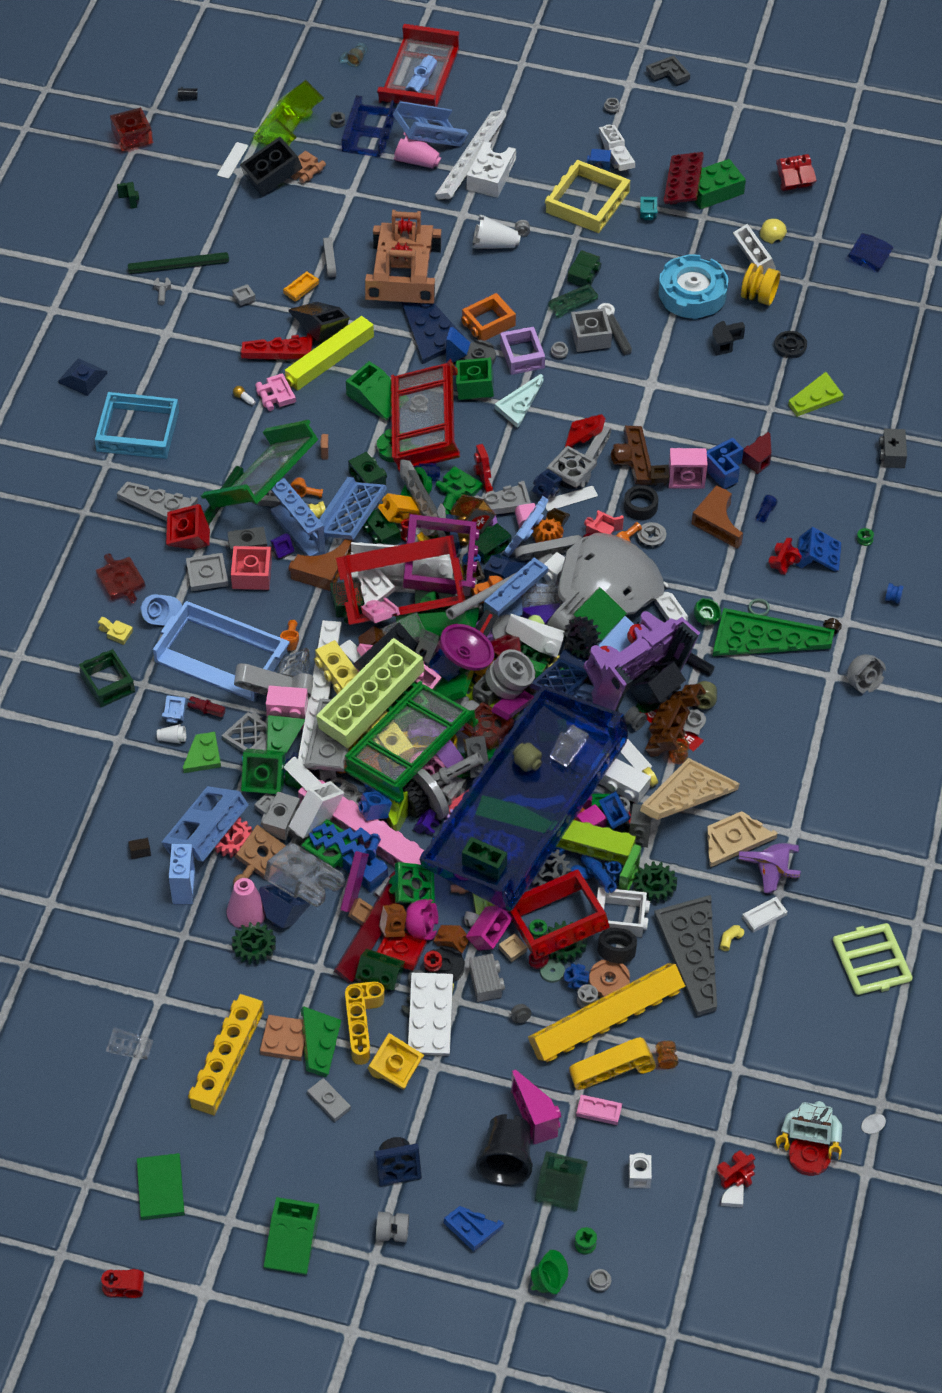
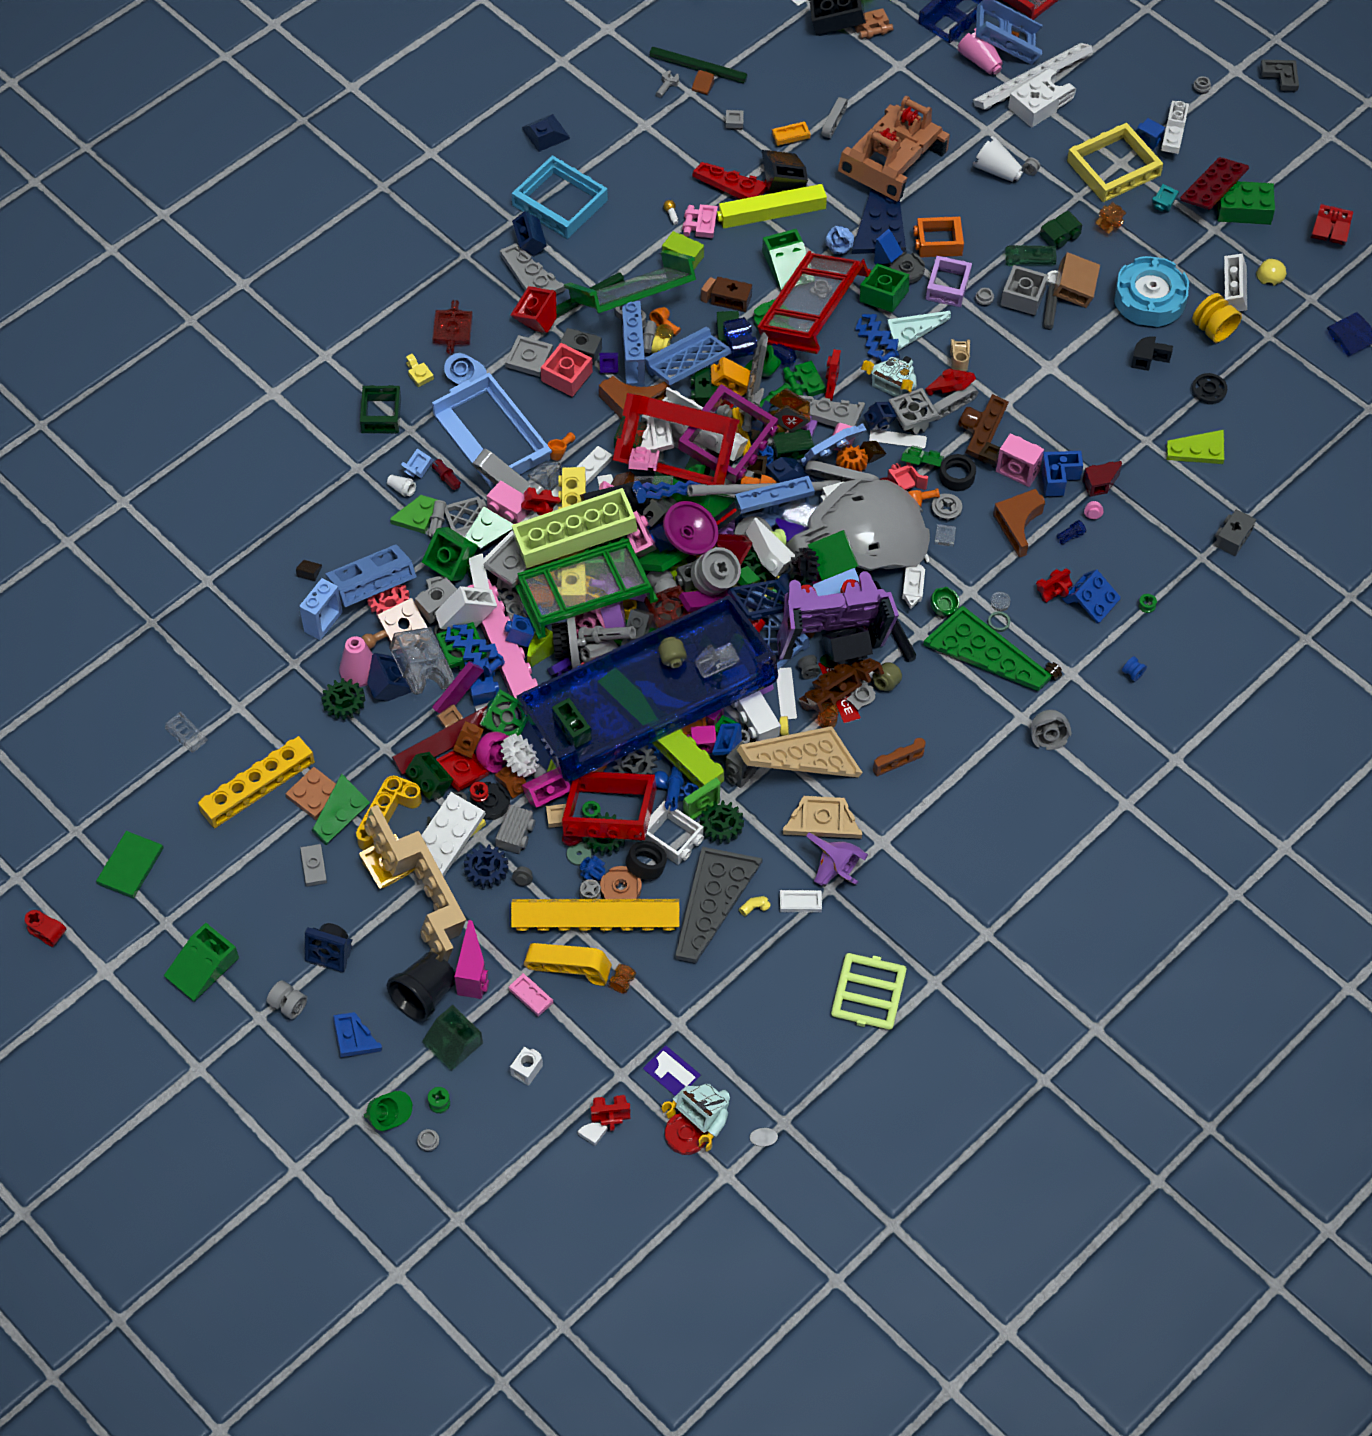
camera: 30 degrees right, 5 degrees up
(134, 467) = (529, 233): none -> dark blue brick
(194, 275) = (703, 82): none -> dark orange slope
(226, 748) = (437, 517): none -> light grey axle
(273, 418) = (684, 245): none -> lime brick
(312, 497) = (664, 331): none -> clear yellow plate
(317, 687) = (539, 503): none -> red hips
(347, 441) = (731, 294): none -> reddish brown brick
(386, 472) = (739, 337): none -> clear blue brick
(403, 633) = (640, 489): none -> blue piece
(408, 355) = (839, 240): none -> light blue piece
(446, 1050) = (412, 853): none -> tan bracket
(450, 911) = (519, 755): none -> white gear
(488, 1028) = (487, 863): none -> dark blue gear
(490, 420) = (892, 344): none -> blue piece
(533, 447) = (892, 375): none -> torso
(574, 405) = (960, 354): none -> tan piece
(597, 503) = (916, 456): none -> green plate
(618, 241) = (1110, 217): none -> clear orange brick
(626, 303) = (1076, 279): none -> medium nougat brick
(666, 558) = (945, 535): none -> clear tile
(749, 591) = (1000, 601): none -> clear tile
(760, 1111) = (671, 1071): none -> sticker
(761, 755) = (899, 757): none -> dark orange plate
(771, 482) = (1093, 510): none -> bright pink plate

